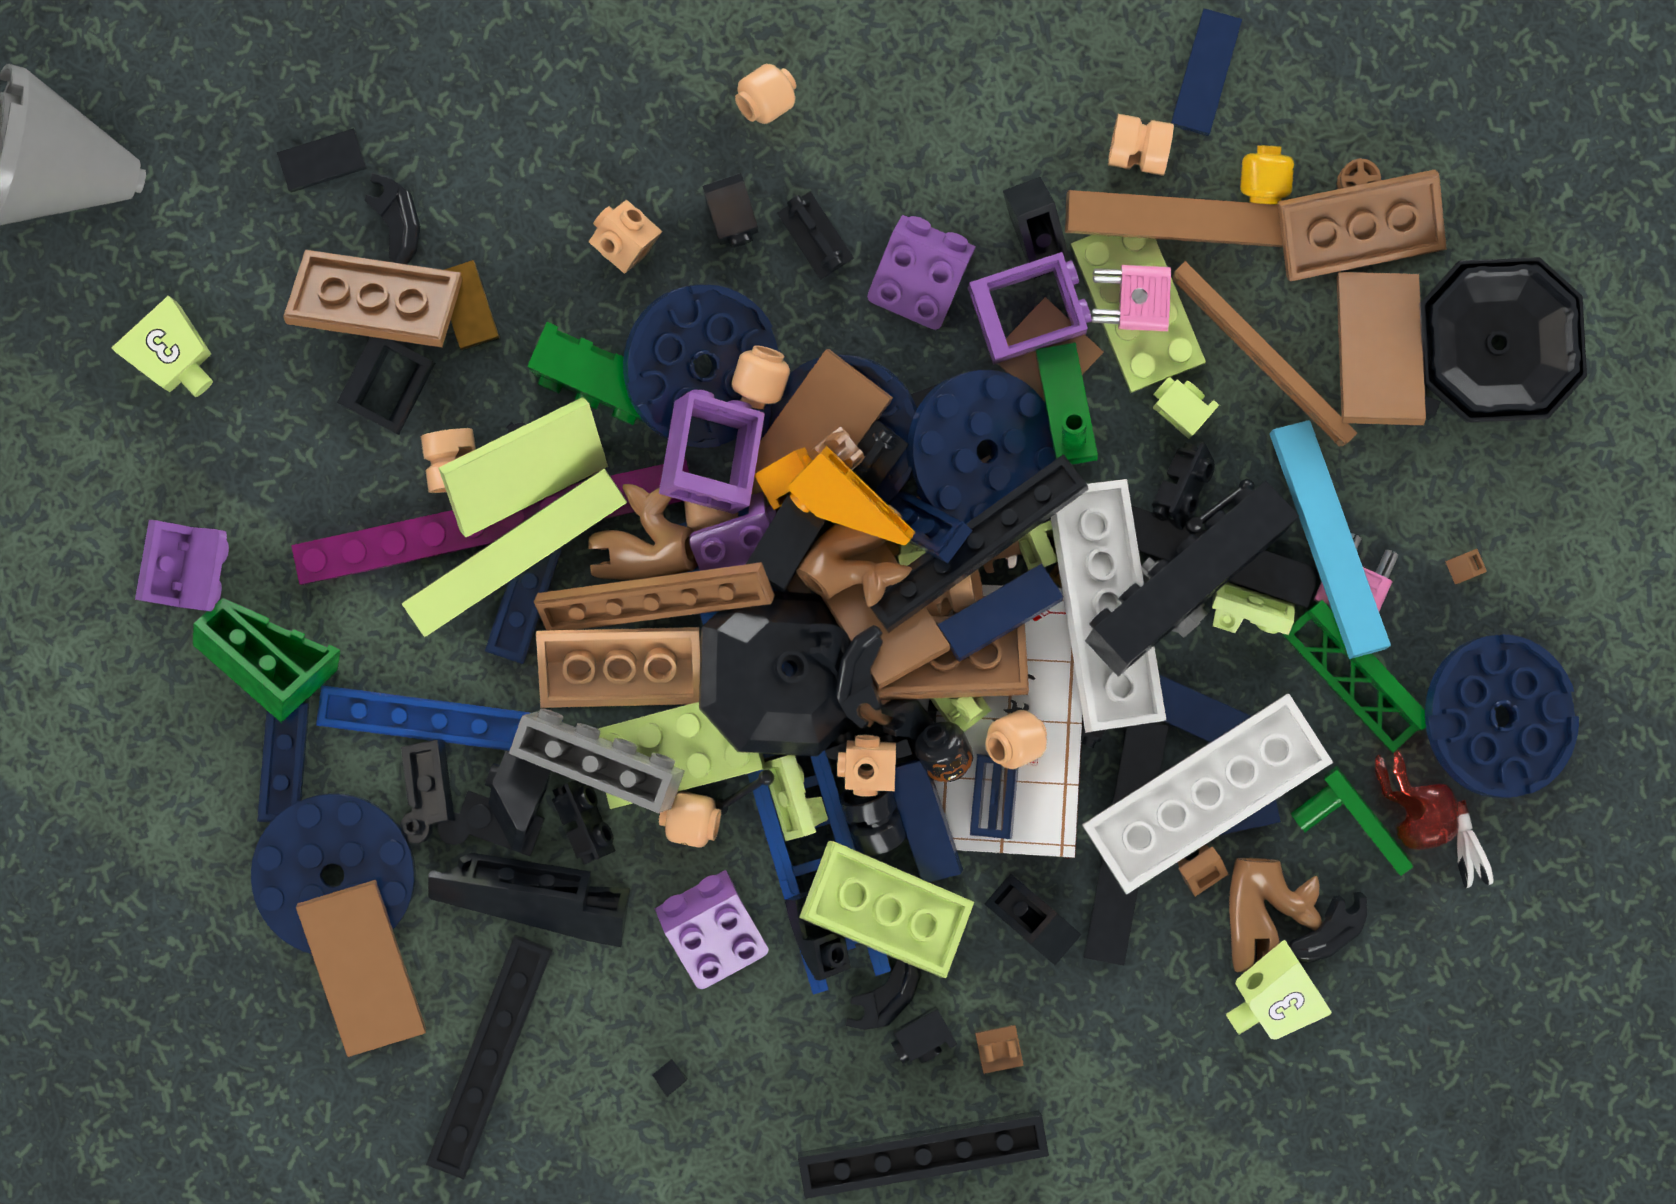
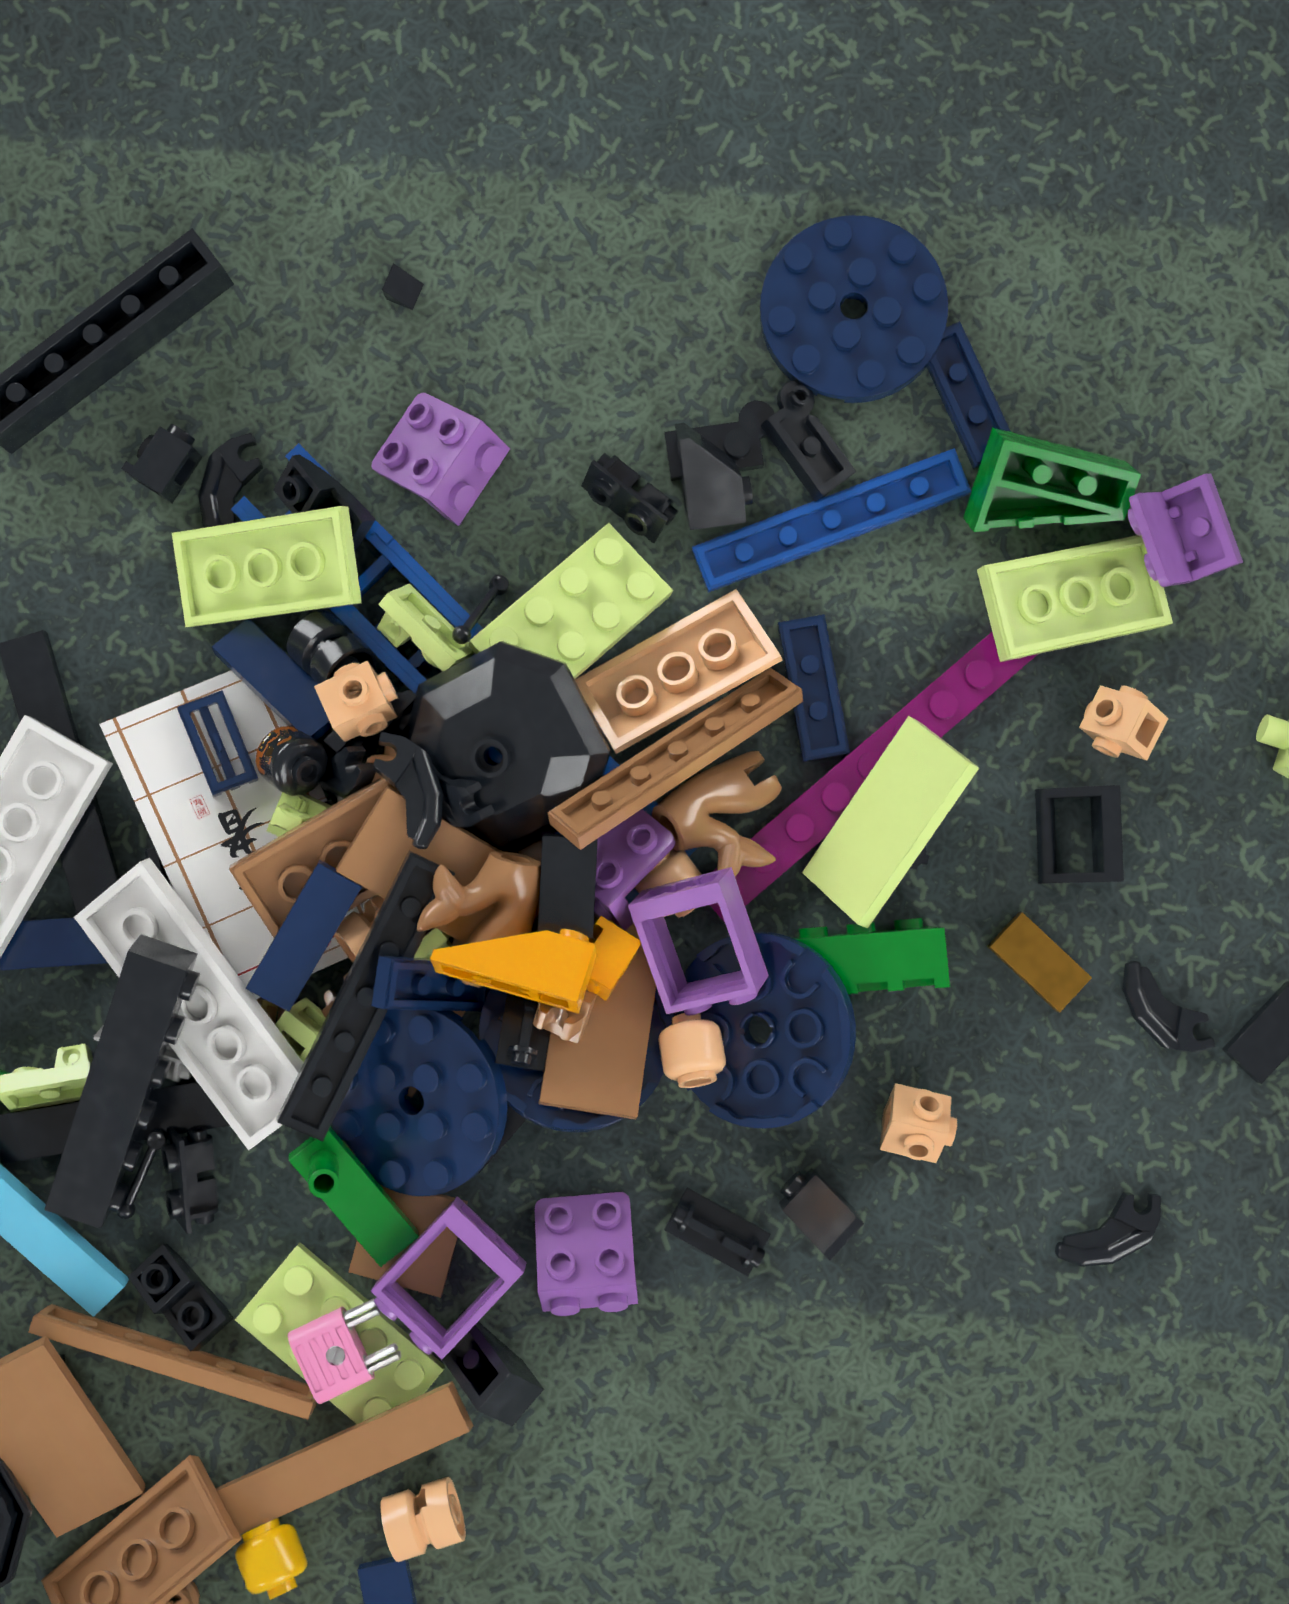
camera: 150 degrees right, 0 degrees up
(294, 561) = (1072, 597): none -> yellowish green tile
(307, 448) = (1123, 722): none -> light nougat brick
(361, 968) = (774, 227): medium nougat tile -> none
(373, 298) = (1142, 915): medium nougat tile -> none
(442, 448) = (980, 798): light nougat wheel -> none
(489, 1057) = (596, 214): black tile -> none
(514, 552) = (848, 730): yellowish green tile -> none
(523, 73) = (1116, 1238): none -> black piece
(534, 896) = (638, 395): black wedge -> none
(597, 761) = (644, 556): light grey brick -> none
(691, 820) = (520, 554): light nougat head -> none
(766, 93) = (850, 1356): light nougat head -> none
(999, 1049) = (83, 493): medium nougat tile -> none
(1016, 739) = (219, 812): light nougat head -> none
(1033, 919) = (114, 640): black slope -> none
(1183, 406) = (232, 1259): yellowish green brick -> none
(1238, 399) = (182, 1297): none -> black slope

